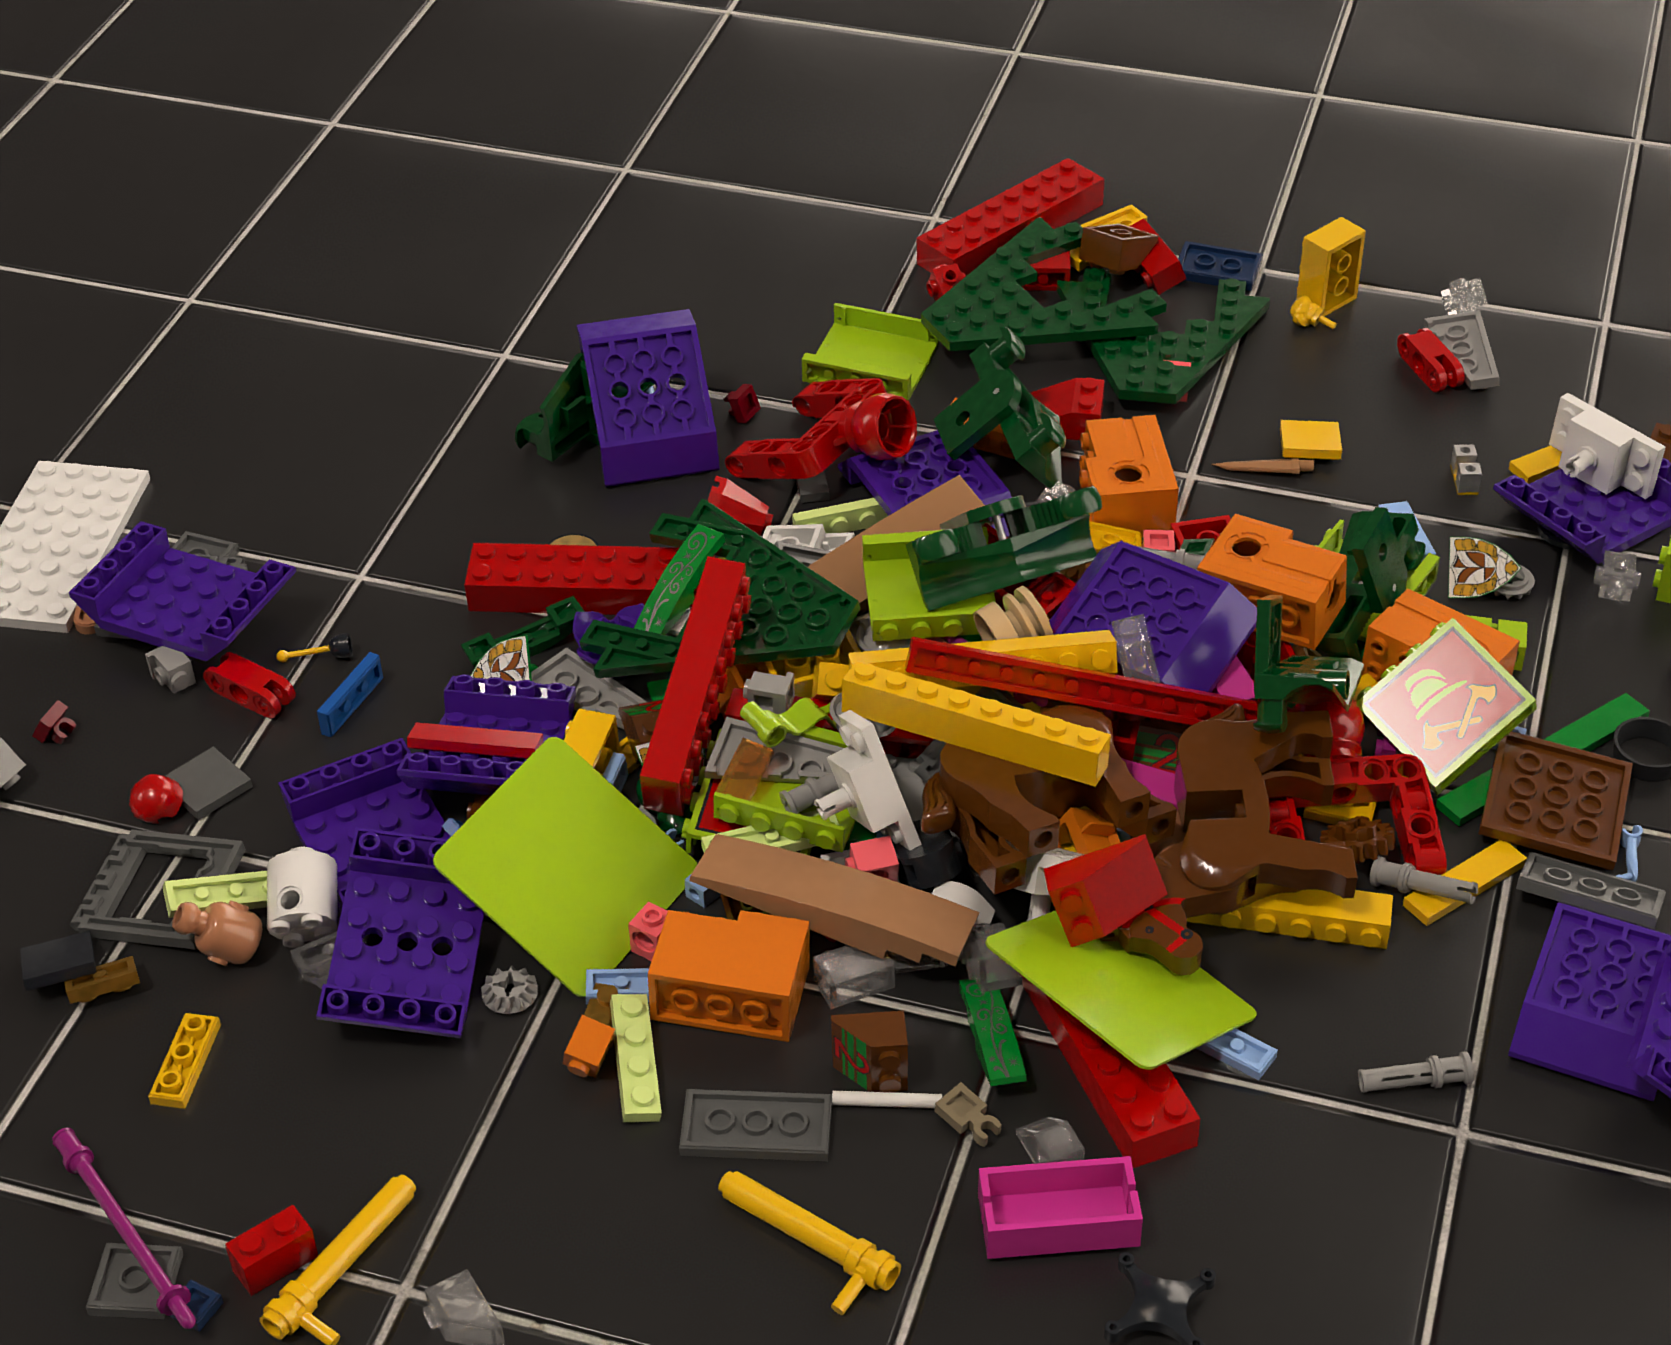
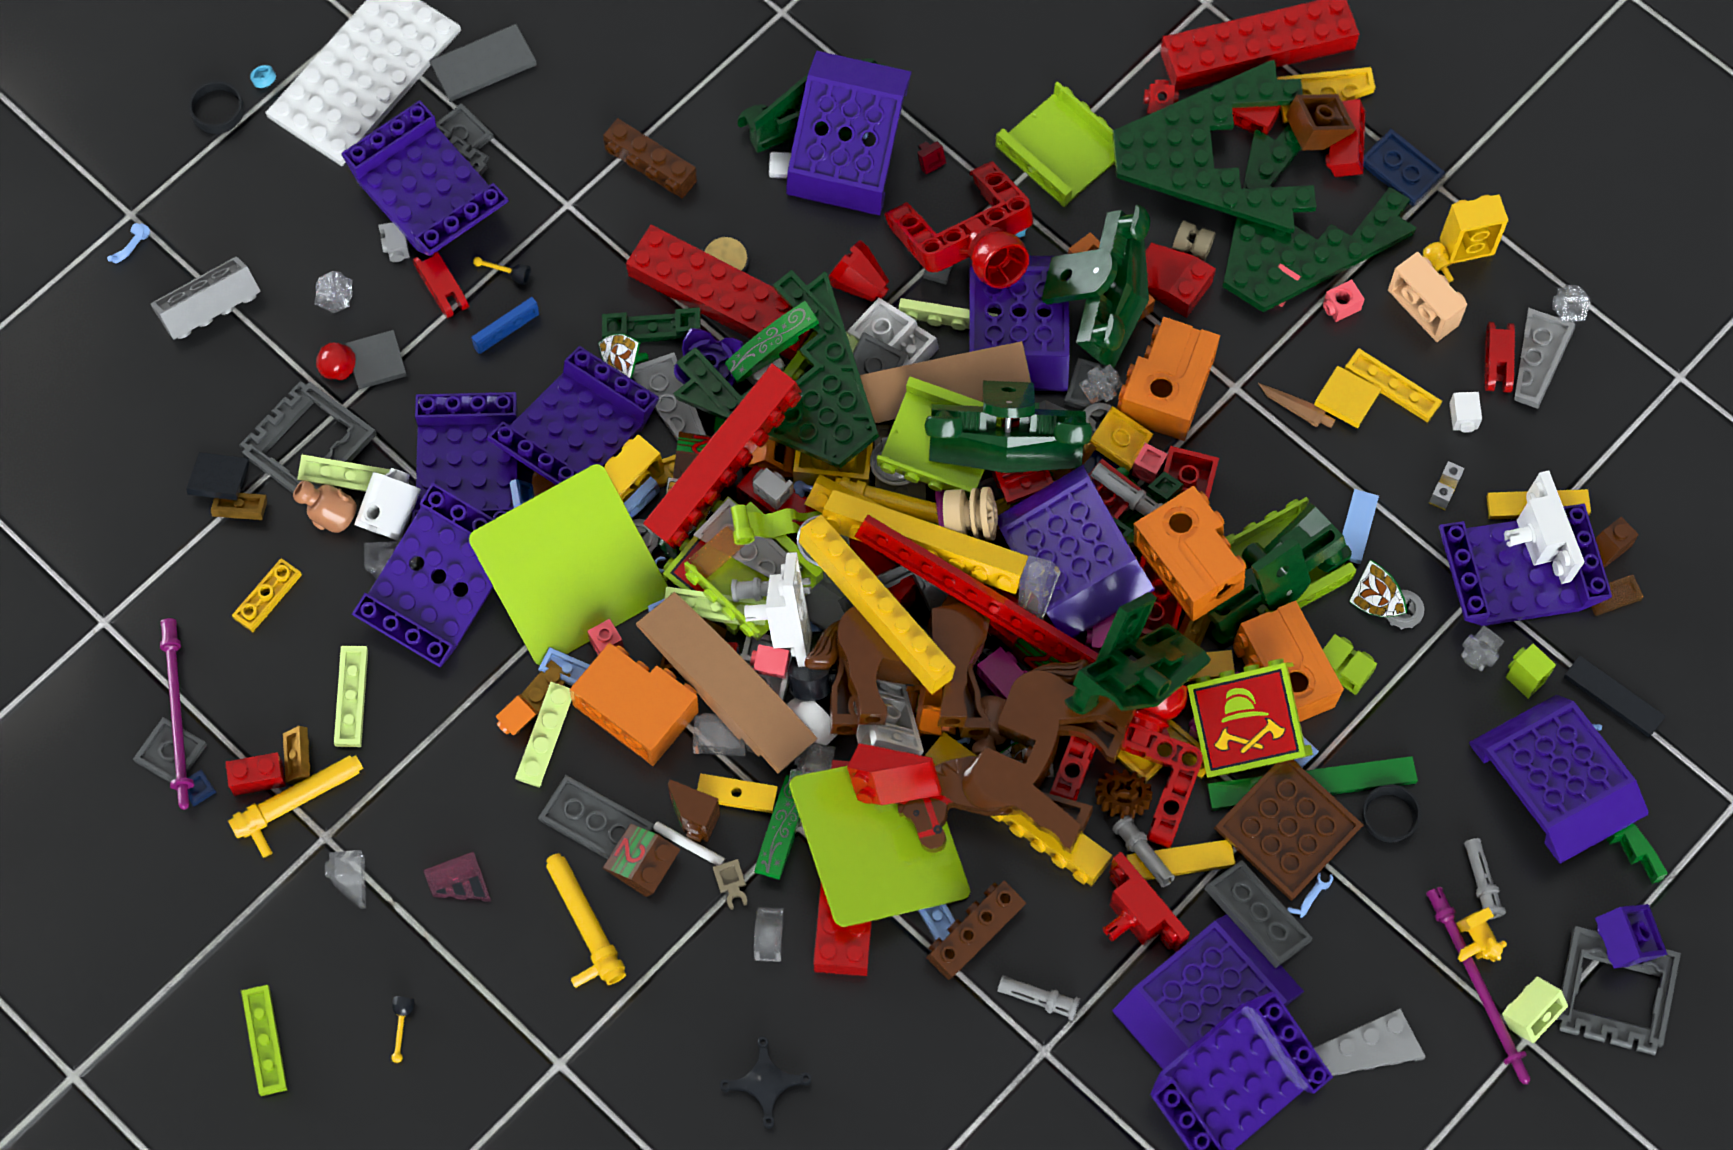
camera: 25 degrees right, 25 degrees up
(52, 722) = (293, 256): dark red tile -> none
(119, 733) = (333, 291): none -> clear brick
(192, 492) = (482, 62): none -> dark grey tile
(317, 1207) = (296, 755): none -> pearl gold plate
(357, 1119) = (351, 696): none -> yellowish green plate
(436, 500) = (650, 158): none -> reddish brown brick
(474, 740) = (562, 421): red tile -> none
(521, 996) = (496, 648): light grey gear -> none
(584, 465) = (779, 164): none -> white tile
(613, 1260) = (457, 879): none -> clear pink wing
(843, 1130) = (641, 859): none -> reddish brown slope
(933, 1016) = (753, 795): none -> yellow tile
(1056, 371) = (1202, 243): none -> dark tan wheel
(1059, 1207) = (743, 984): dark pink piece -> none
(1246, 370) = (1347, 292): none -> coral brick
(1293, 1037) = (975, 930): none -> reddish brown brick
(1326, 334) = (1427, 296): none -> light nougat brick
(1350, 417) = (1394, 385): none -> yellow tile
(1434, 408) = (1465, 411): none -> white brick
(1467, 928) = (1141, 909): none -> red brick

